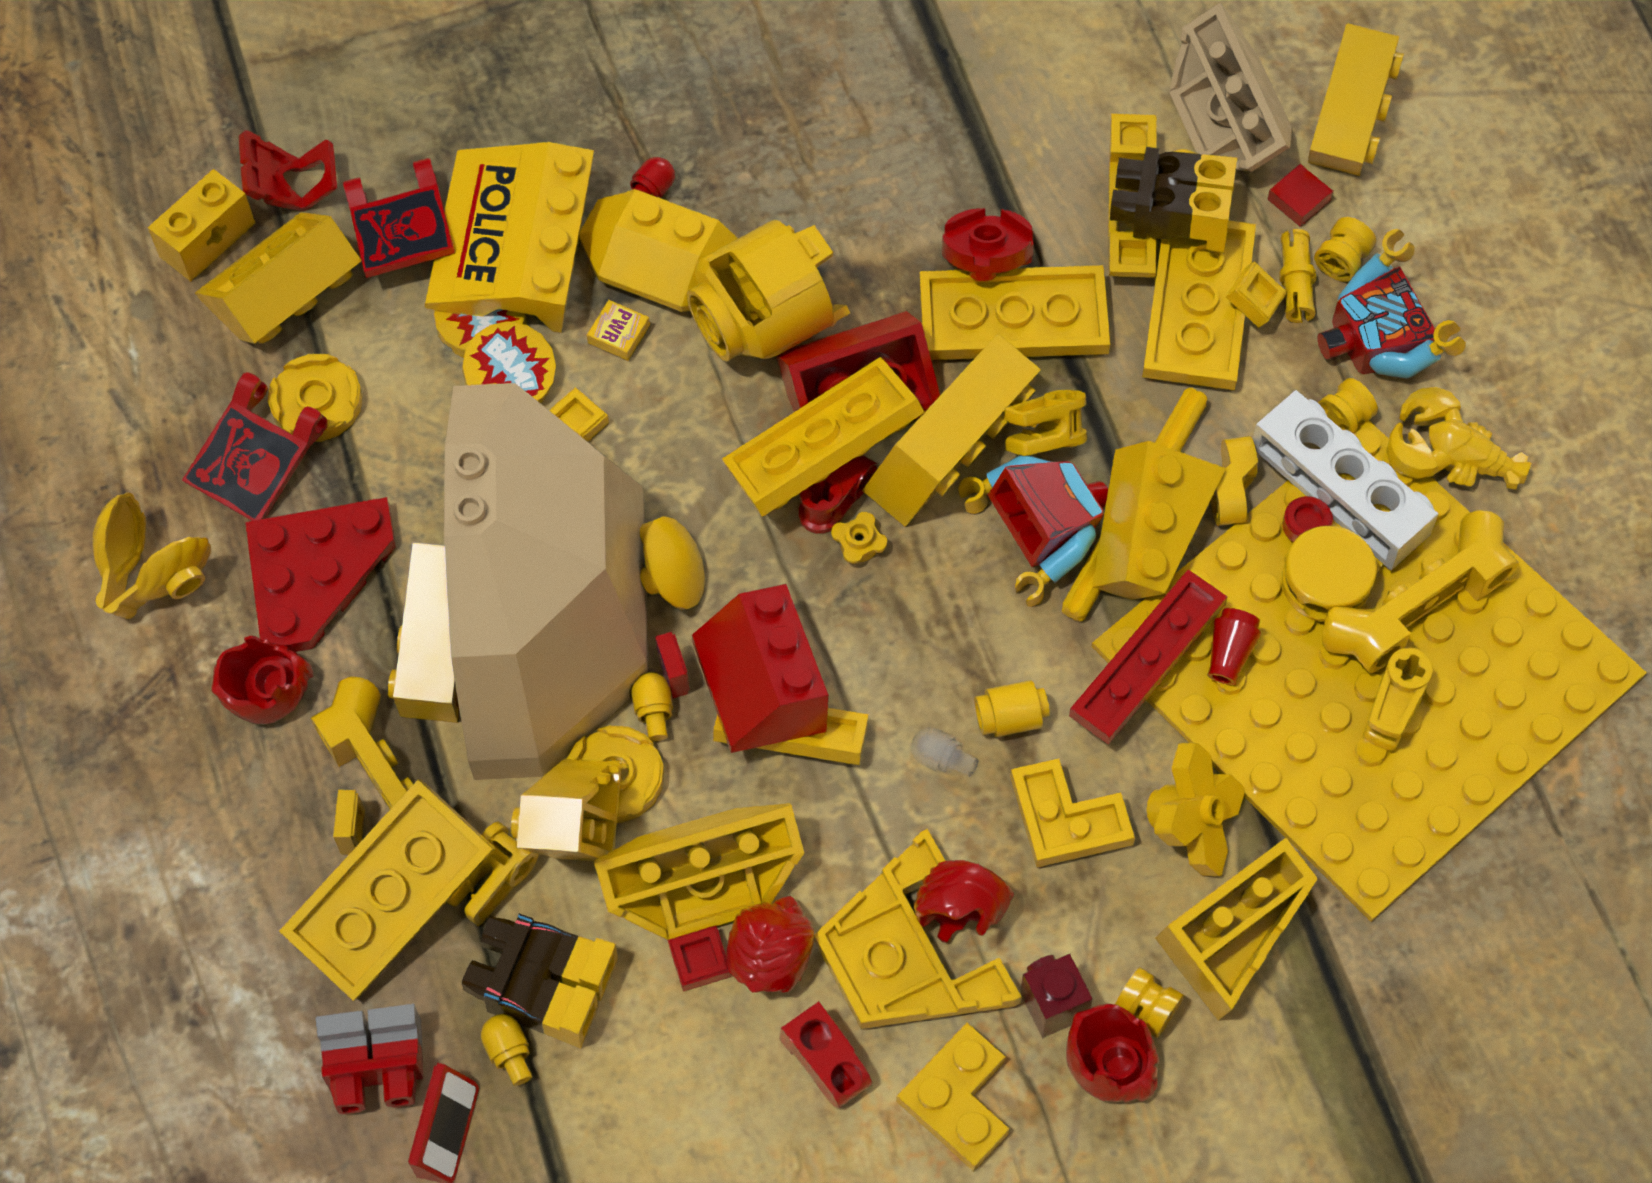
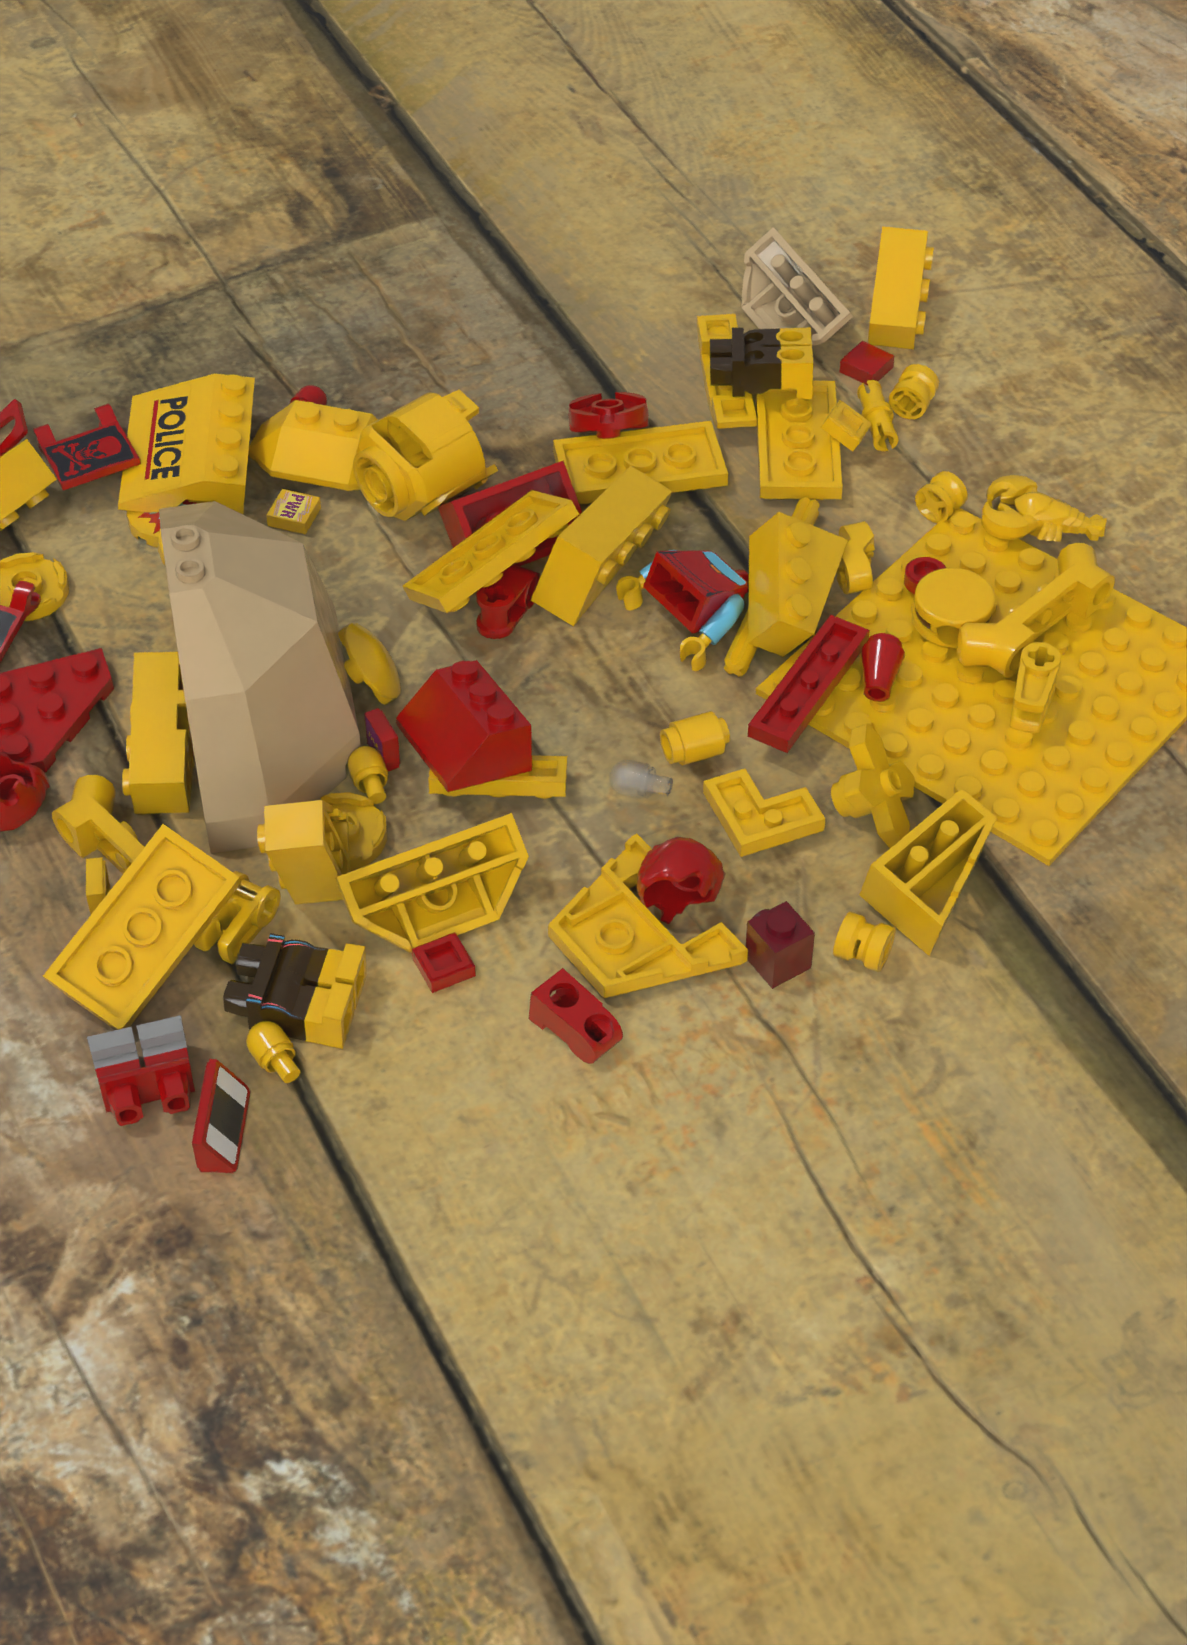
camera: 10 degrees left, 15 degrees down
(770, 946) = (509, 936): red hair -> none
(863, 550) = (534, 635): yellow plate -> none
(945, 1101) = (695, 1045): yellow plate -> none
(1058, 420) = (694, 527): yellow piece -> none
(1112, 1054) = (840, 981): red hair -> none
(1316, 472) = (931, 527): white brick -> none
(1384, 322) = (959, 434): torso -> none

